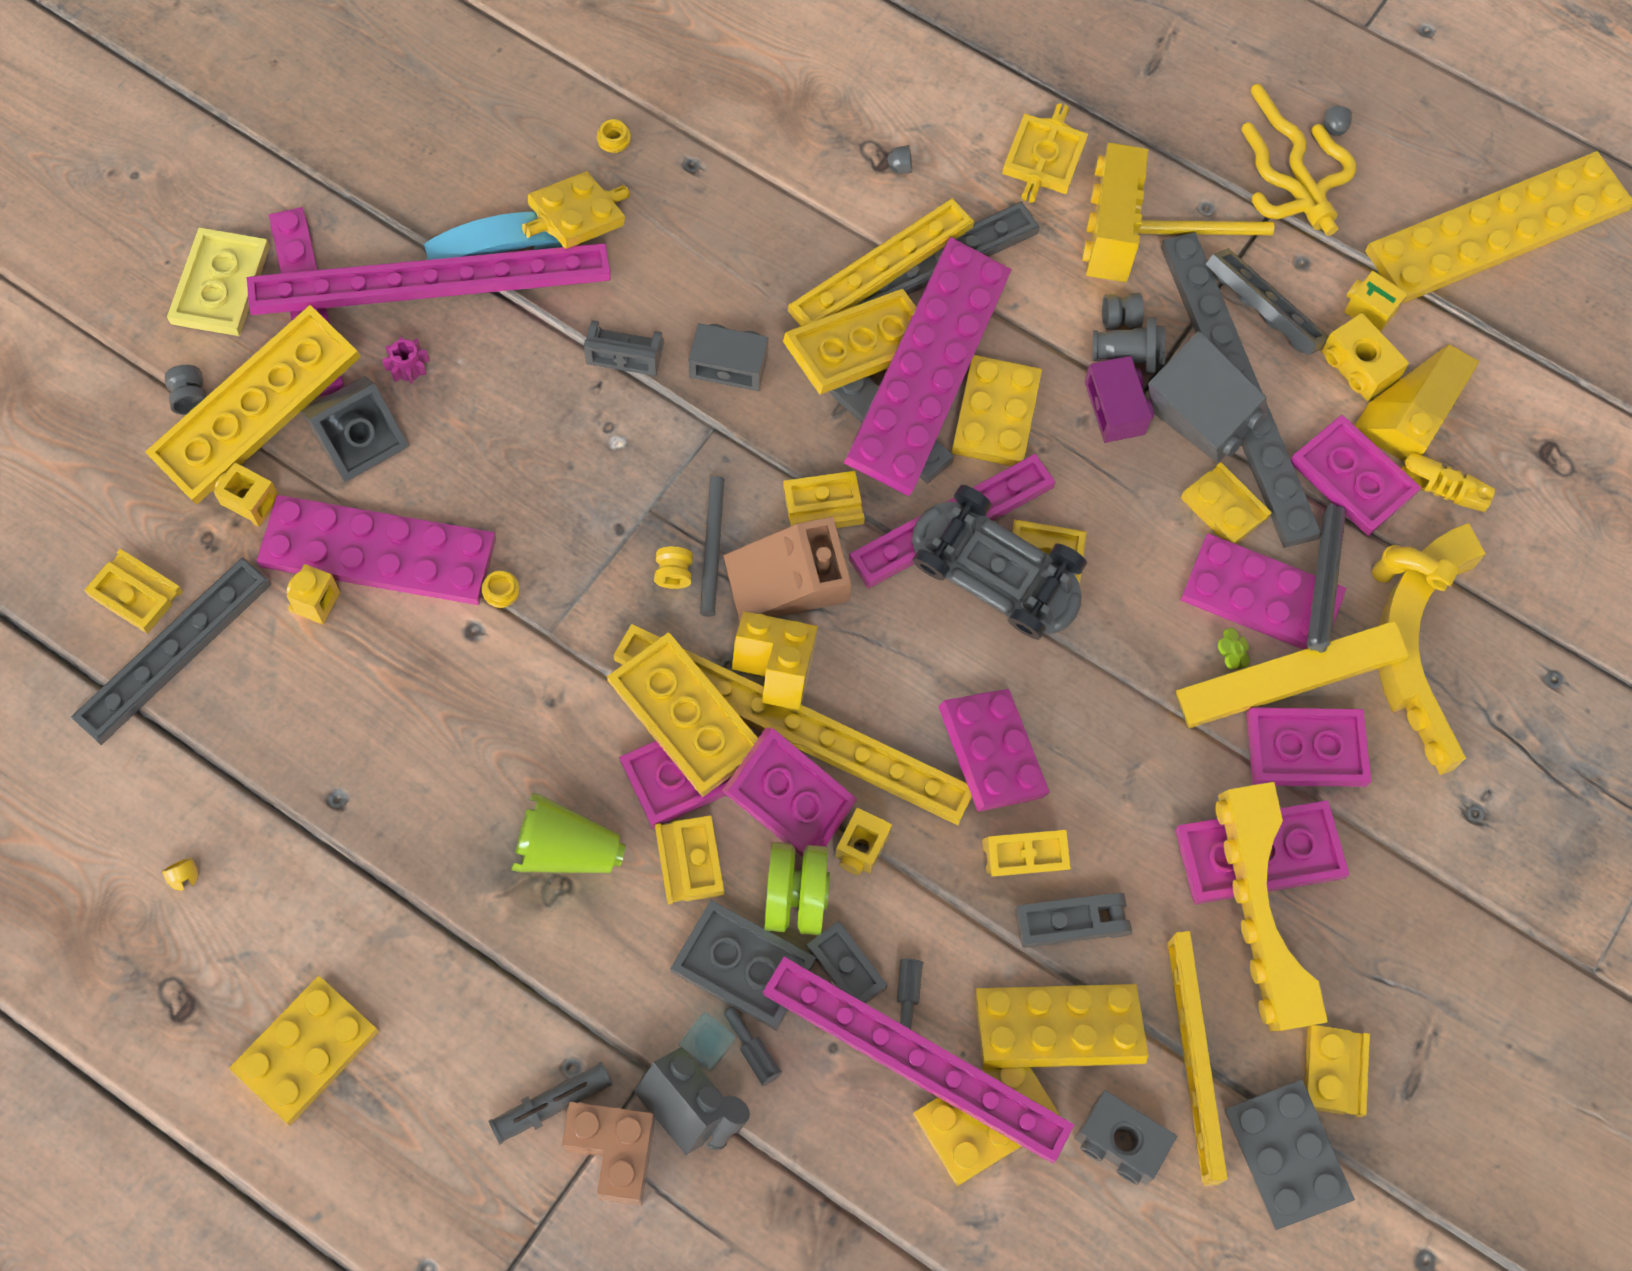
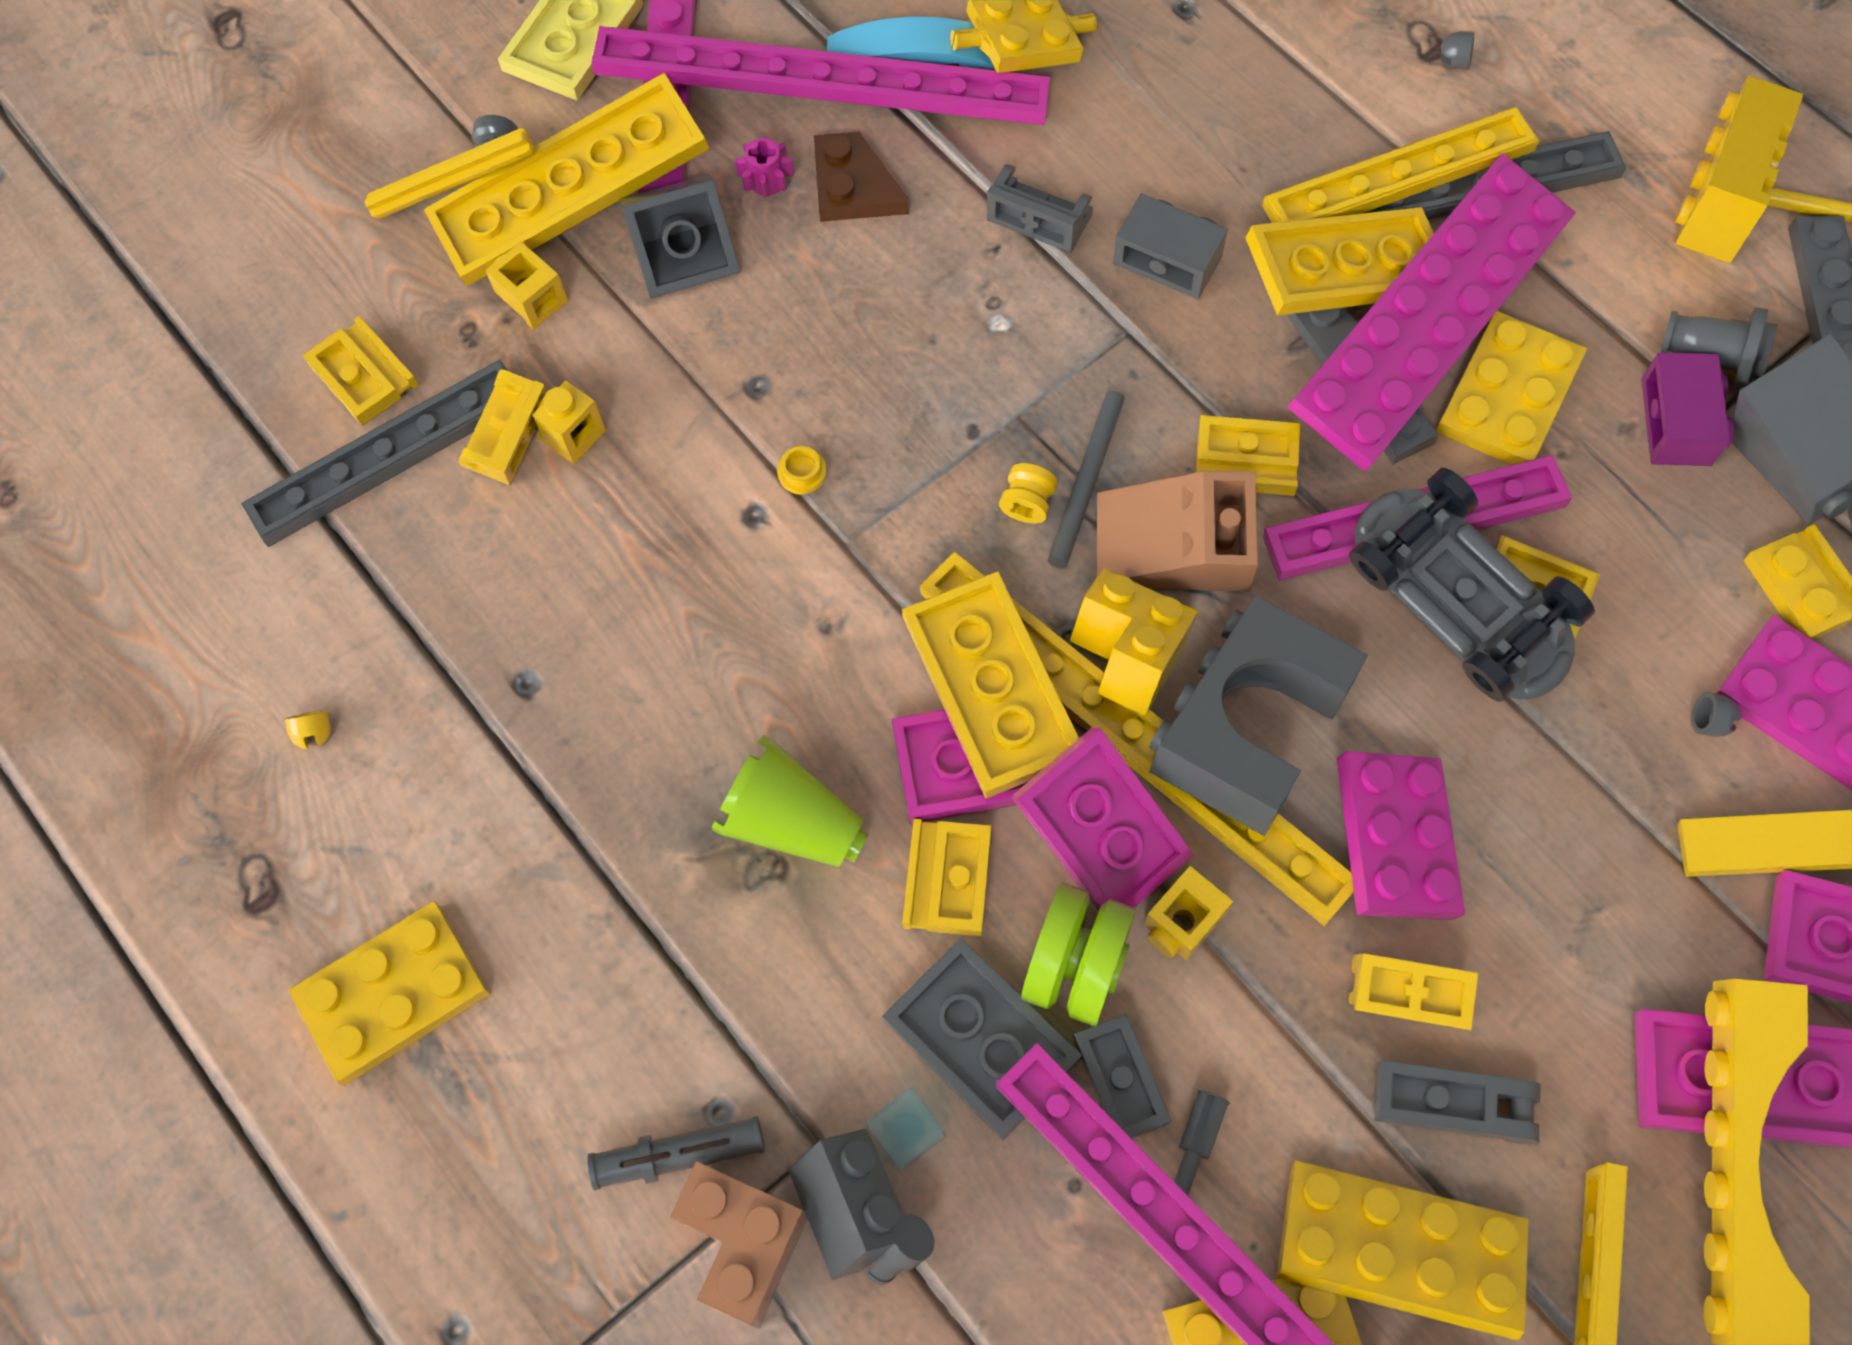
camera: 25 degrees right, 0 degrees up
(158, 420) = (450, 173): none -> yellow axle
(263, 609) = (504, 428): none -> yellow hinge
(378, 549) = (668, 388): dark pink plate -> none
(476, 354) = (854, 180): none -> reddish brown wing
(753, 1050) = (965, 1159): dark grey axle -> none
(847, 725) = (1203, 749): none -> dark grey arch
(1045, 153) = (1656, 77): yellow plate -> none
(1122, 311) = (1718, 295): dark grey wheel -> none
(1183, 612) = (1715, 715): none -> dark grey hinge
(1234, 649) = (1778, 783): lime plant -> none

